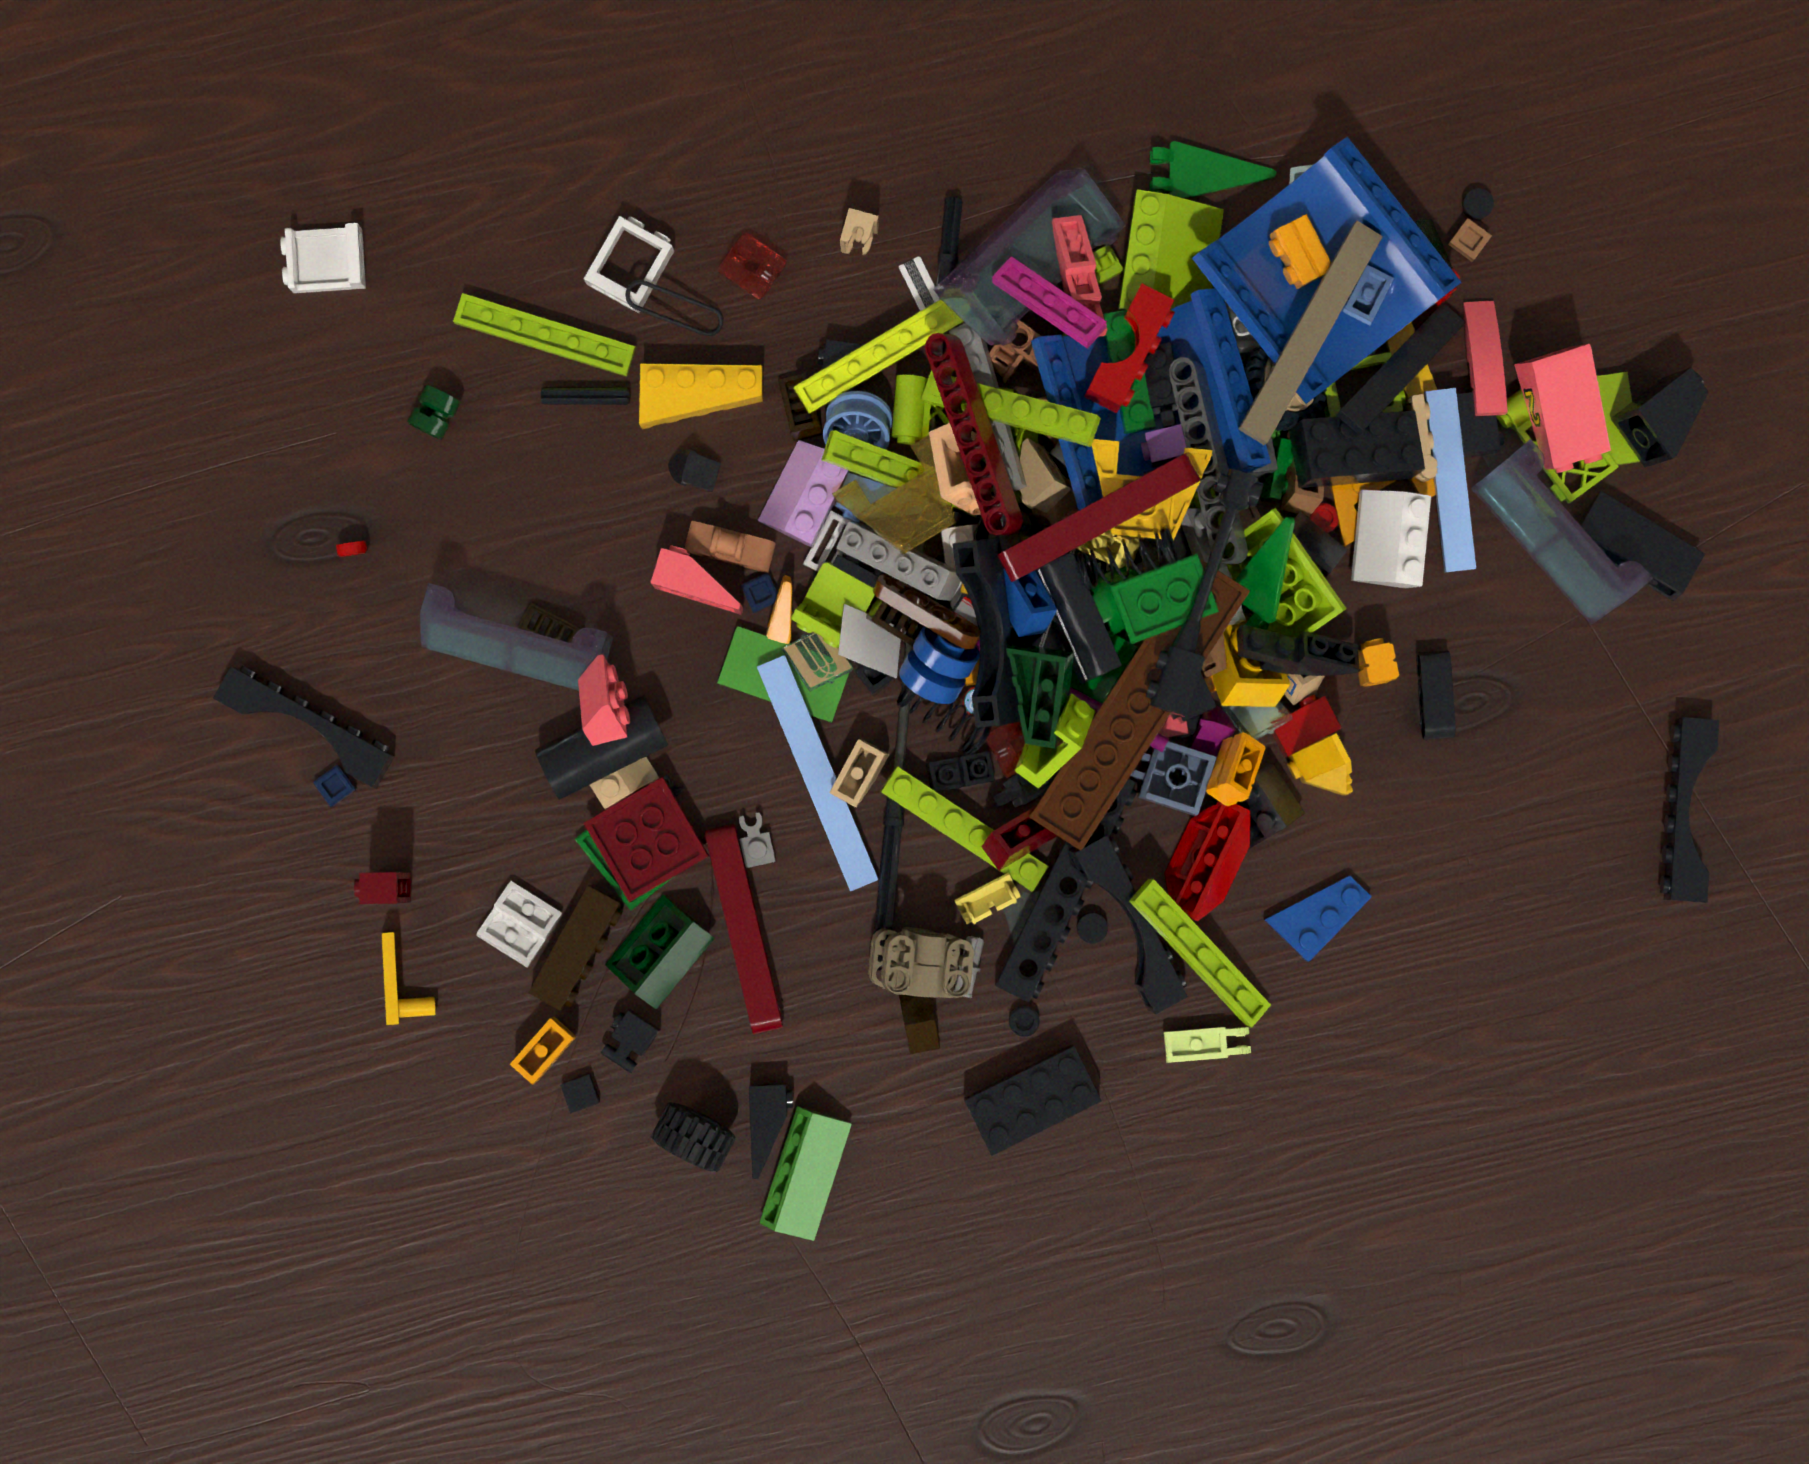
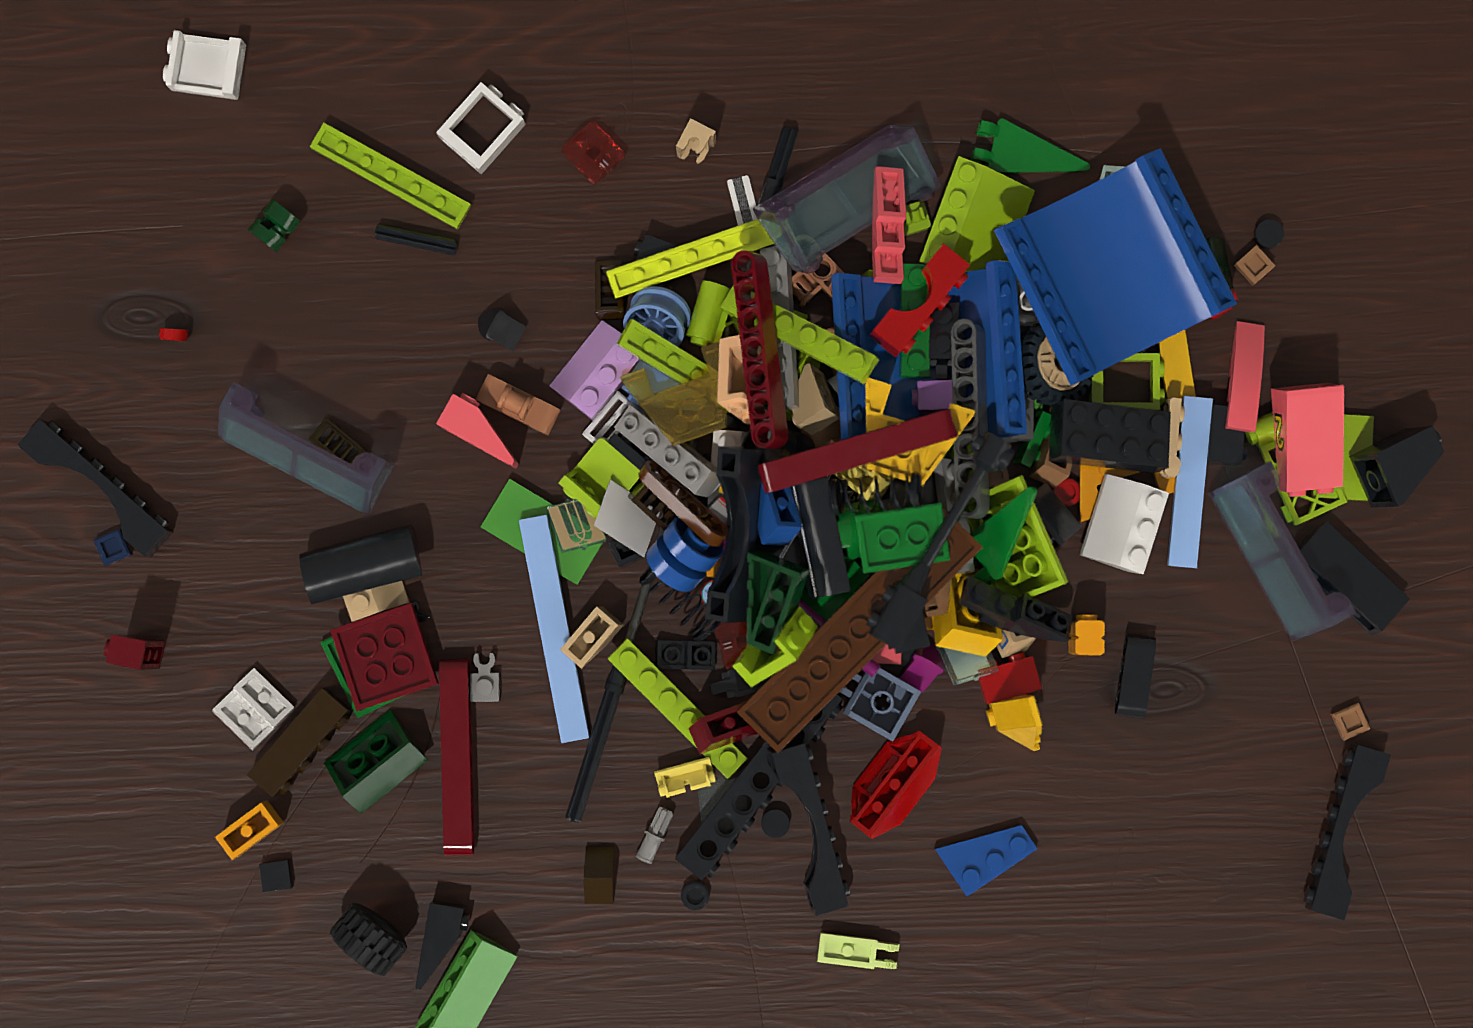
camera: 15 degrees right, 0 degrees up
(397, 1007) = (129, 763): yellow piece -> none
(603, 703) = (369, 525): coral slope -> none
(634, 1035) = (335, 833): black brick -> none
(677, 295) = (544, 206): black piece -> none
(693, 390) = (511, 254): yellow wedge -> none
(760, 592) = (537, 453): dark blue tile -> none
(780, 620) = (549, 483): light orange slope -> none
(921, 962) = (610, 823): dark tan piece -> none
(1032, 1099) = (686, 969): black brick -> none
(1049, 302) = (855, 242): dark pink plate -> none
(1200, 952) = (868, 868): lime plate -> none
(1235, 769) = (936, 706): light orange brick -> none
(1270, 805) = (960, 742): black slope -> none
(1300, 252) = (1095, 245): light orange brick -> none
(1310, 333) = (1088, 321): dark tan tile -> none
(1368, 295) = (1149, 297): medium blue slope -> none
(1401, 369) = (1165, 371): black tile -> none
(1670, 695) = (1350, 721): none -> medium nougat tile

